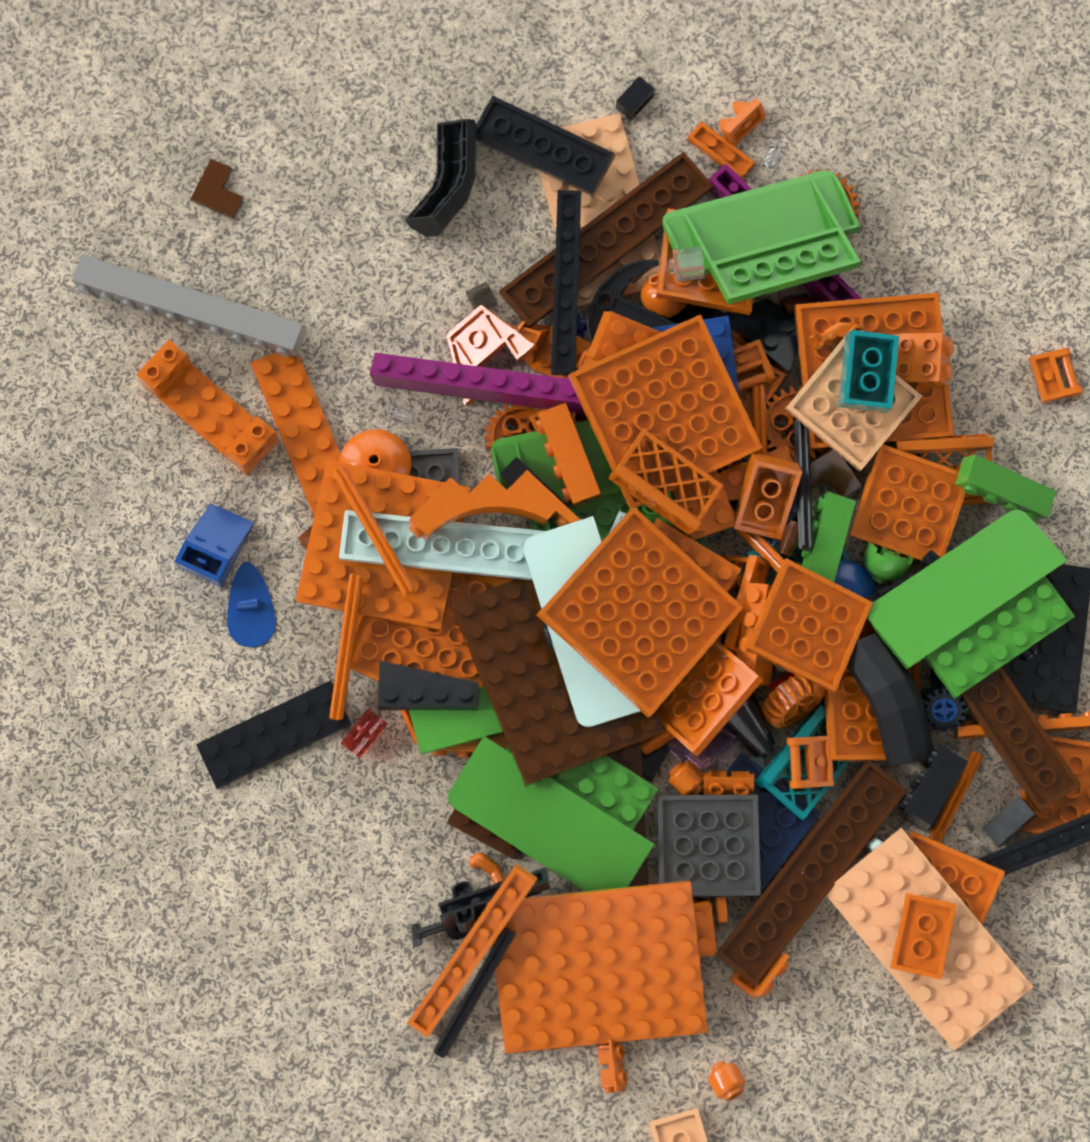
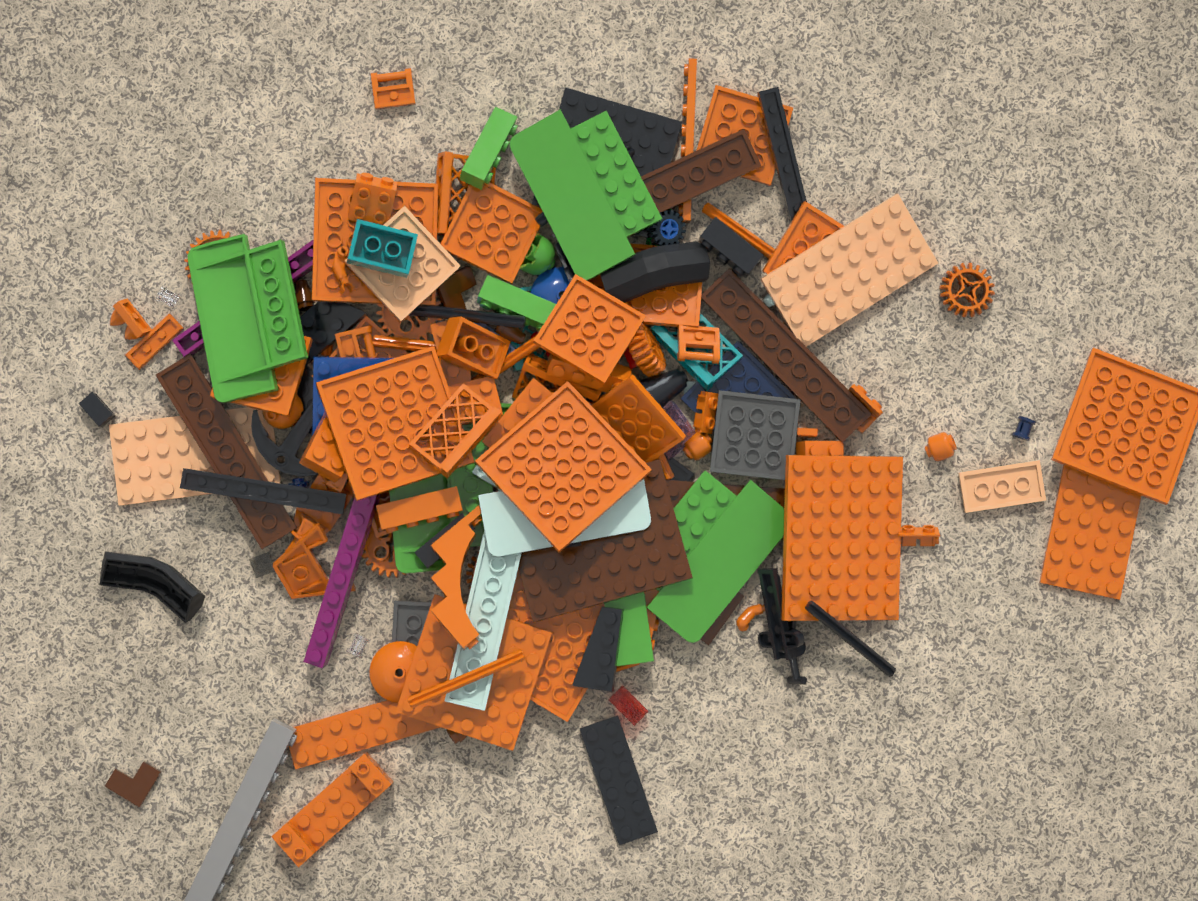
camera: 85 degrees left, 10 degrees up
(214, 545) = (451, 814): blue slope -> none
(250, 608) = (509, 789): blue shield -> none
(346, 646) = (557, 712): orange axle -> none
(472, 950) = (818, 636): orange plate -> none
(543, 146) = (133, 495): black plate -> none
(687, 264) = (267, 387): clear brick -> none
(923, 935) = (849, 274): orange plate -> none
(934, 1100) = (982, 281): none -> orange gear
(1009, 821) = (763, 190): black tile -> none

